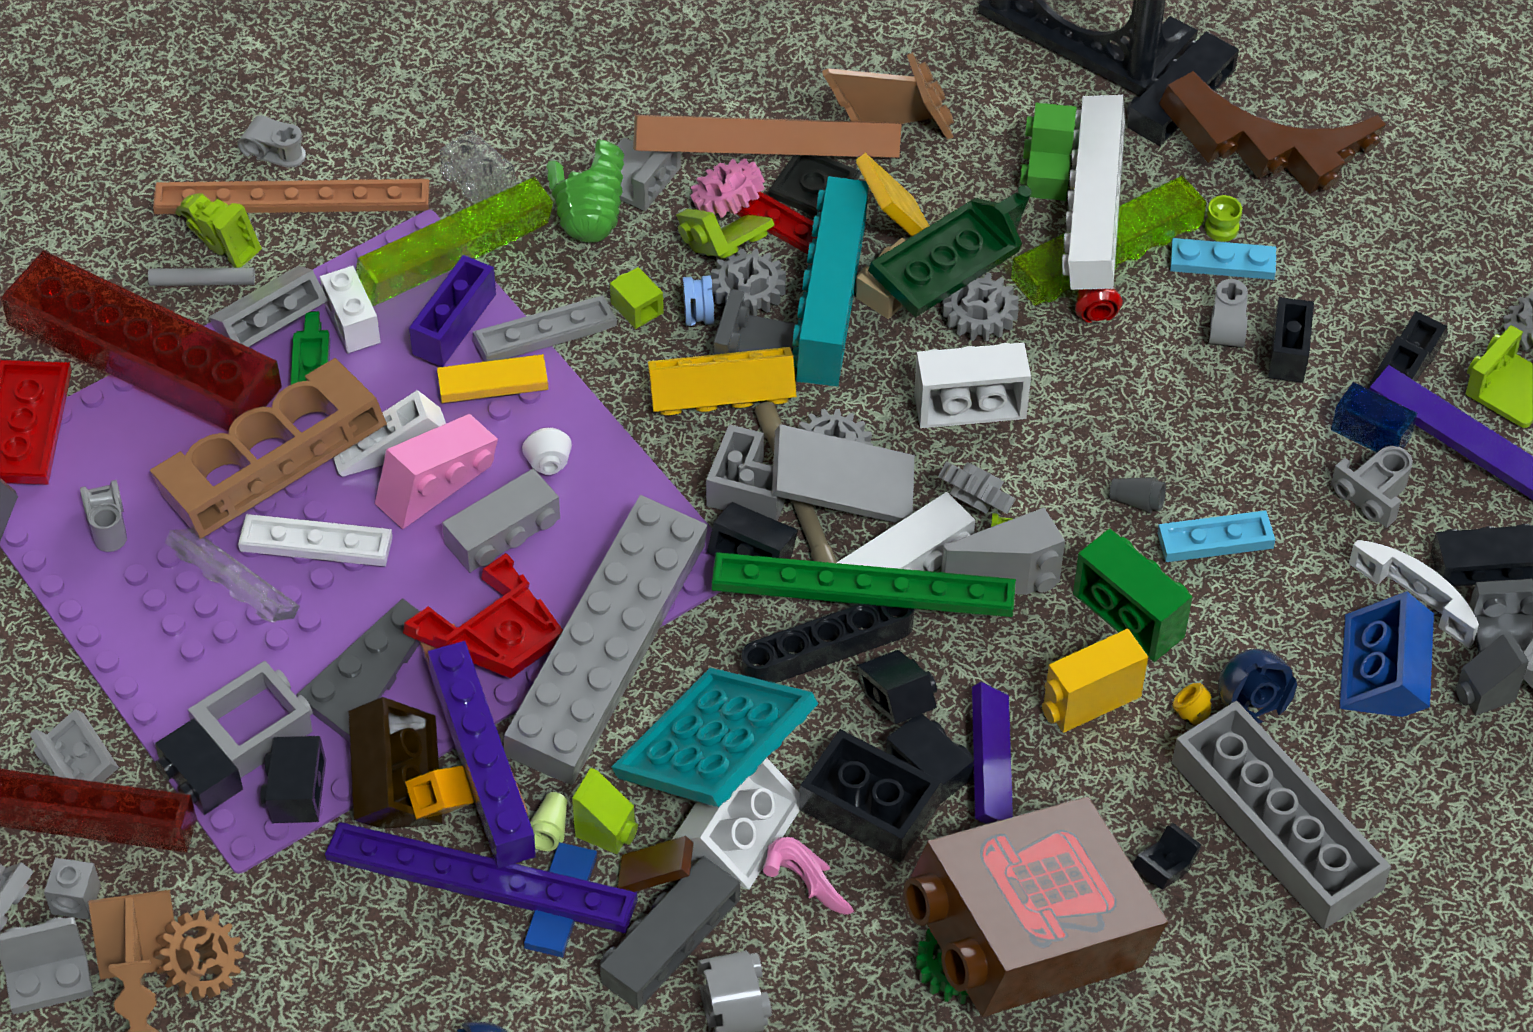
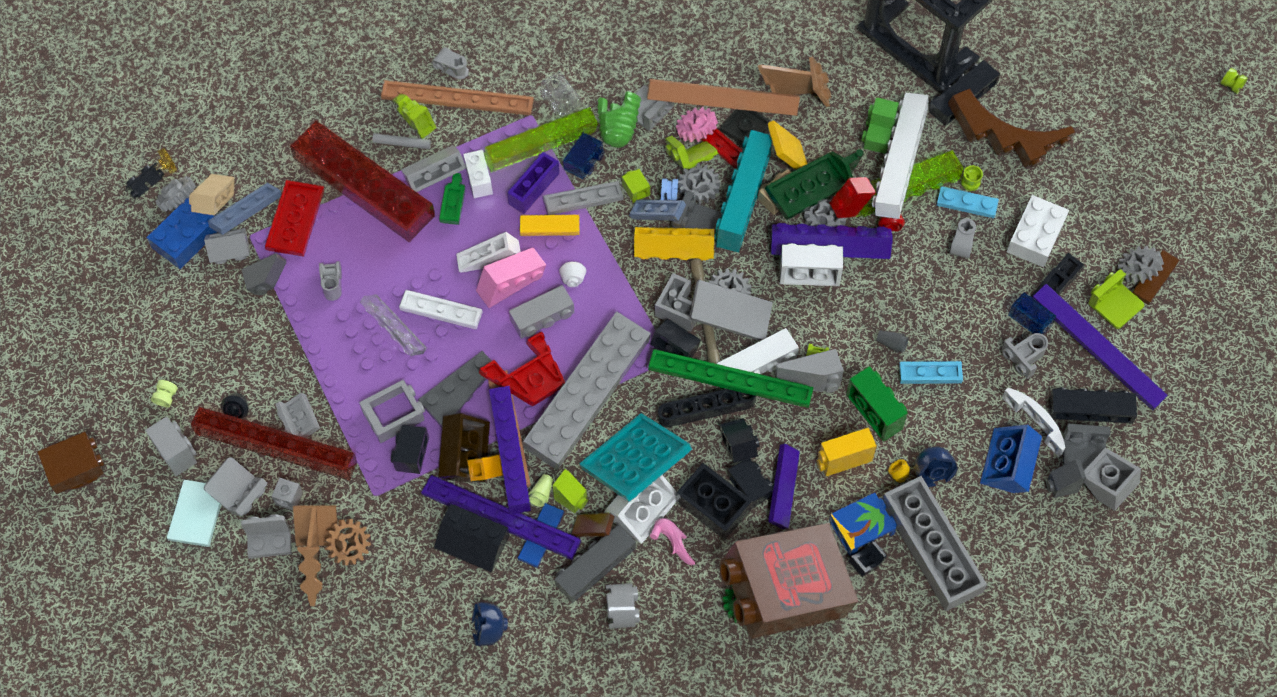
camera: 10 degrees right, 10 degrees up
(198, 766) = (360, 434): black brick -> none
(328, 389) = (458, 223): medium nougat fence -> none
(432, 918) = (471, 538): none -> black slope
(535, 261) = (583, 156): none -> clear blue brick
(683, 329) = (657, 209): none -> sand blue tile
(976, 487) = (802, 328): light grey gear -> none
(1025, 264) = (852, 197): none -> red brick
(1048, 338) = (856, 241): none -> dark purple brick
(1146, 797) = (862, 523): none -> blue panel
(1291, 339) = (995, 259): black brick -> none
(1355, 287) = (1037, 231): none -> white brick

